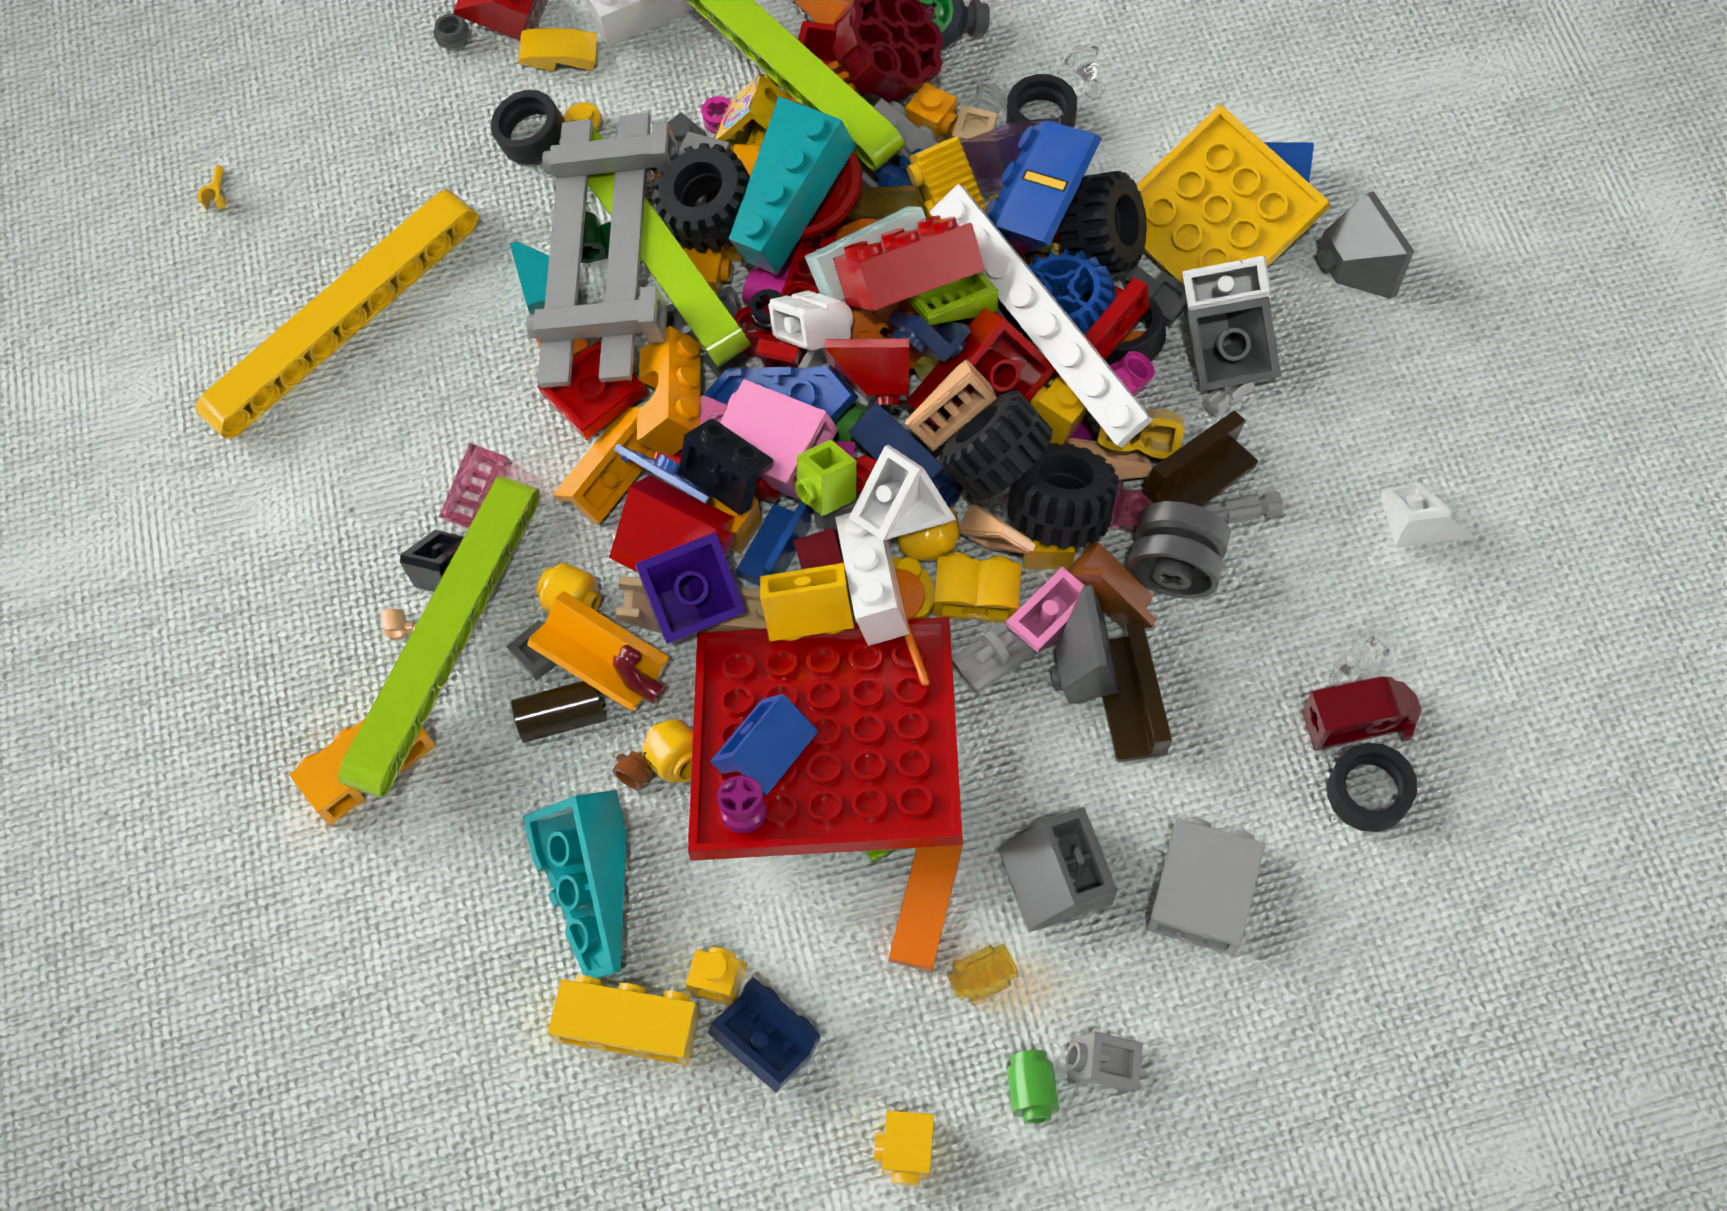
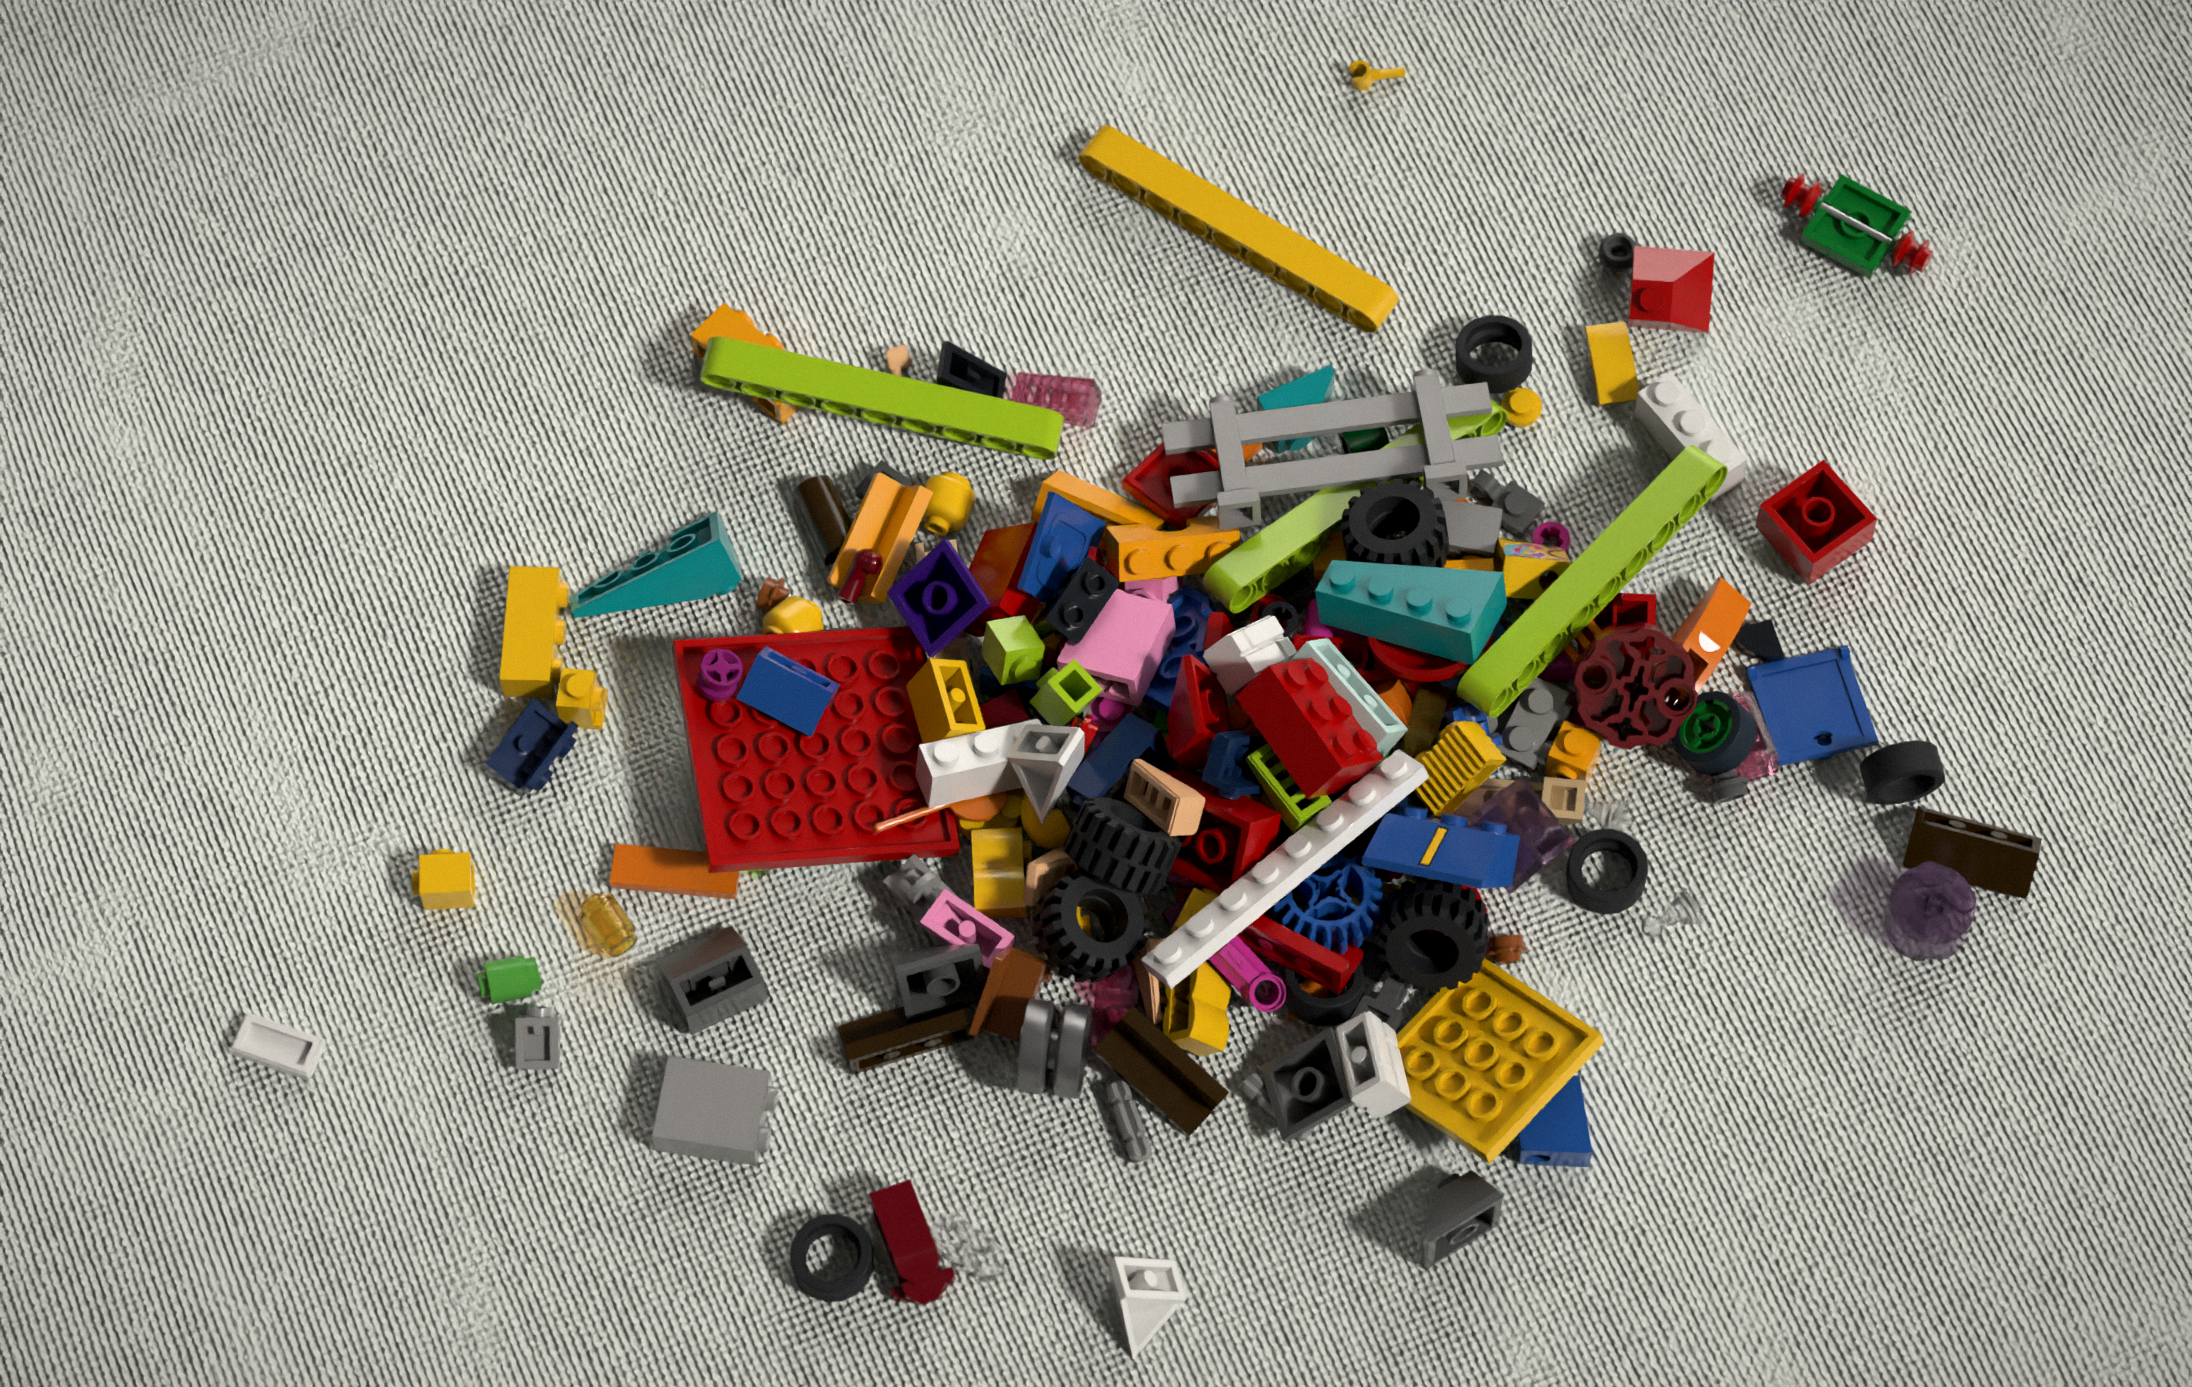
camera: 80 degrees right, 0 degrees up
(761, 526) = (1013, 649): none -> lime brick

